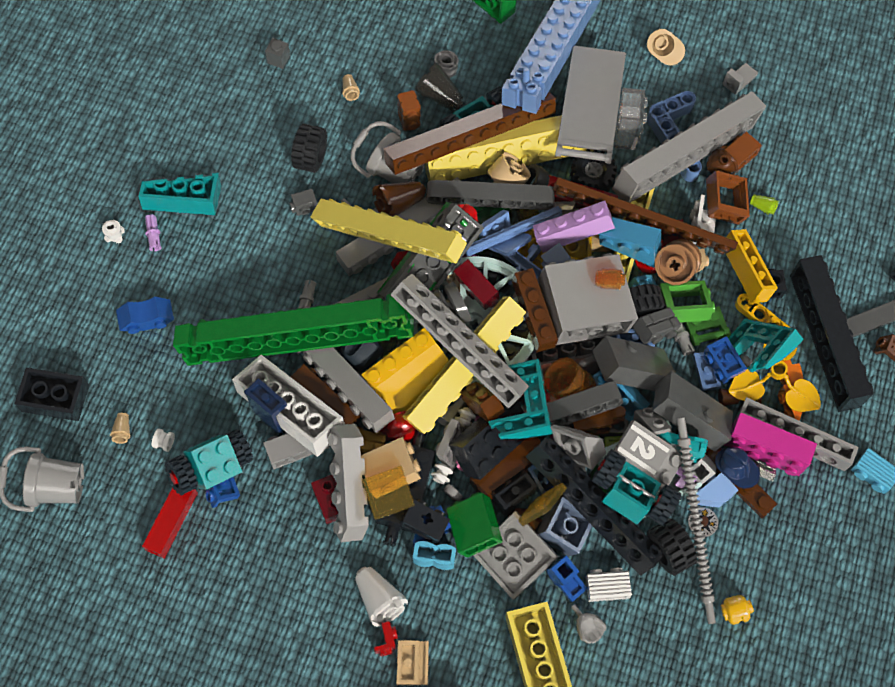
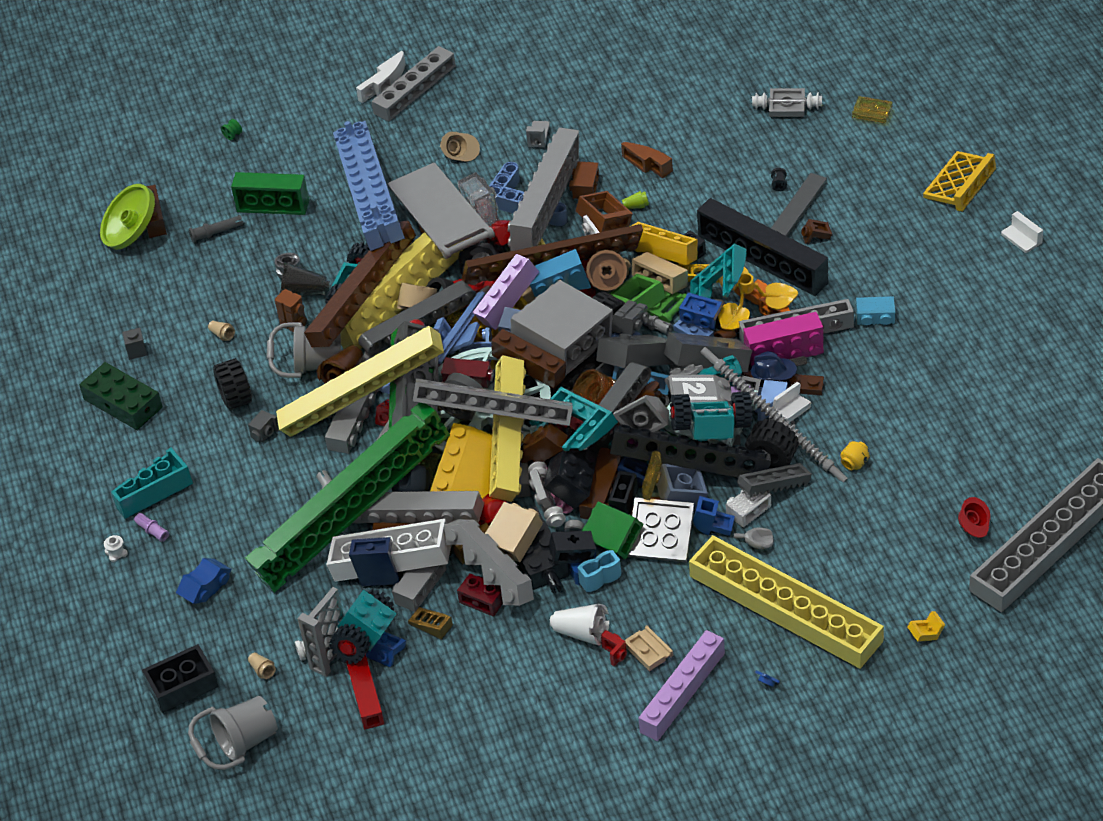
camera: 30 degrees left, 20 degrees down
(167, 445) = (314, 636): none -> light grey fence
(229, 94) = (121, 396): none -> dark green brick
(279, 505) = (439, 631): none -> pearl gold slope
(388, 492) = (528, 539): clear yellow tile -> none
(609, 279) = (568, 295): clear orange brick -> none
(626, 153) = (501, 232): none -> red brick
(646, 583) = (774, 479): none -> dark grey gear
(716, 162) = (572, 192): reddish brown helmet -> none
(724, 293) = (670, 275): none -> tan brick
(724, 513) = (790, 403): none -> white panel
(808, 169) = (647, 158): none -> dark orange slope

